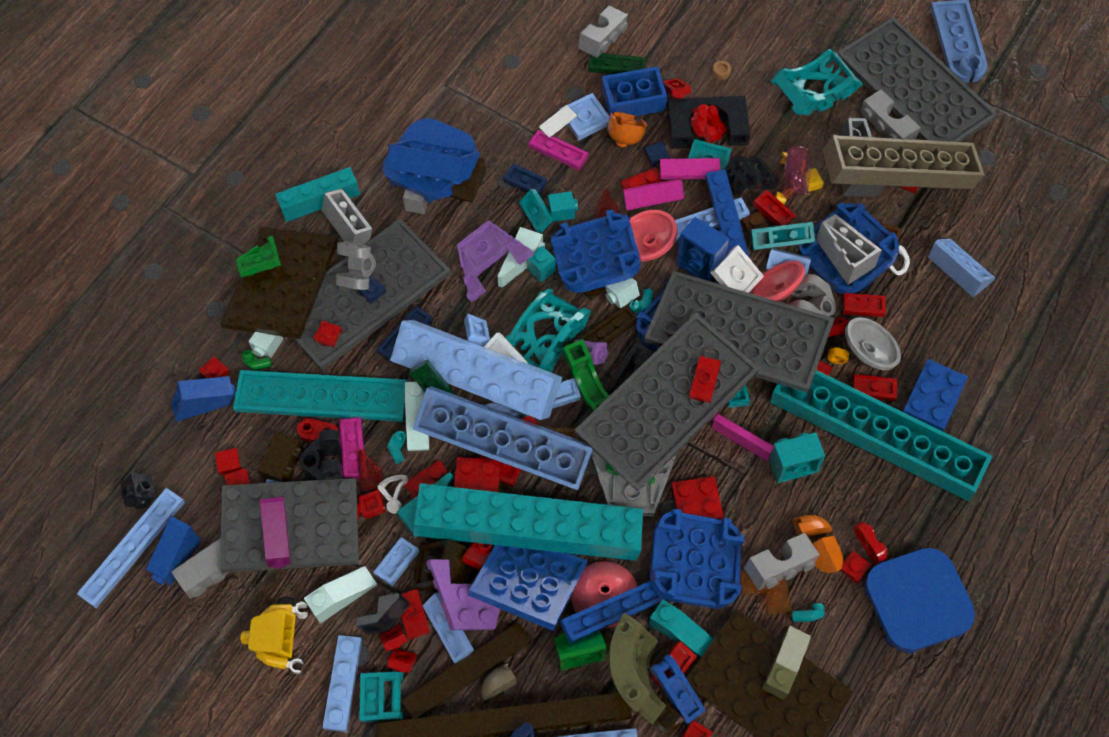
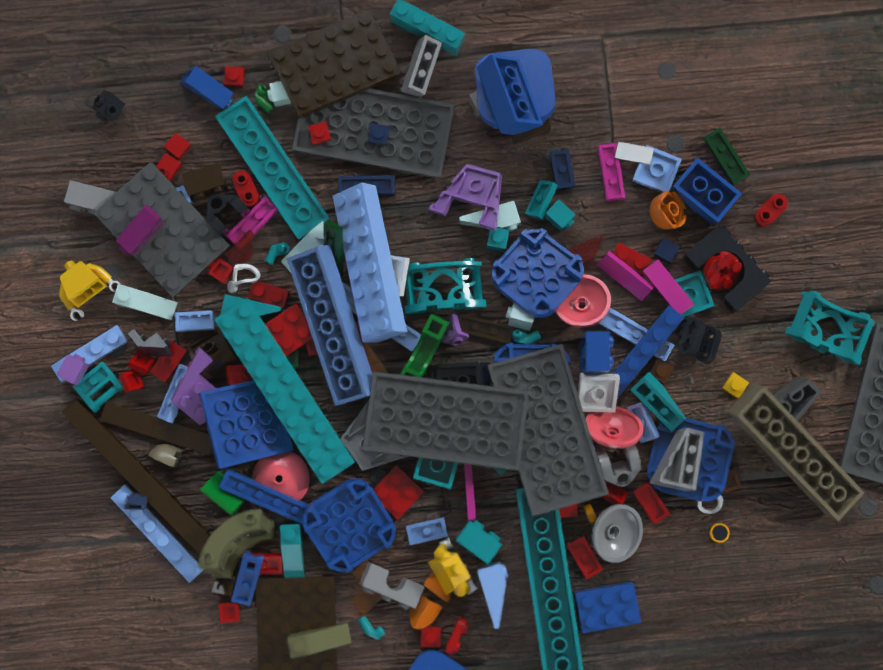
camera: 50 degrees right, 20 degrees up
(130, 548) = (69, 136): light blue plate -> none
(173, 550) = (85, 168): blue slope -> none
(259, 259) = (336, 34): green wing -> none
(345, 702) = (73, 369): none -> medium lavender brick
(360, 265) = (385, 113): light grey piece -> none
(476, 330) = (404, 237): light blue plate -> none
(610, 25) = (762, 124): light grey arch -> none
(677, 88) = (737, 220): red plate -> none
(686, 61) = (771, 210): none -> red plate
(704, 449) = (436, 471): none -> teal brick
(705, 379) = (479, 437): red plate -> none
(721, 70) = (788, 241): medium nougat tile -> none
(752, 499) = (426, 531): none -> medium blue plate
(773, 209) = (683, 377): red plate -> none
(797, 172) = (727, 372): clear pink torso -> none
(806, 497) = (451, 571): none -> yellow torso
(851, 476) = (493, 583): none -> light blue slope
(877, 111) = (835, 424): light grey arch -> none
(928, 273) = (719, 532): none -> tile
(960, 266) = (745, 554): light blue slope -> none

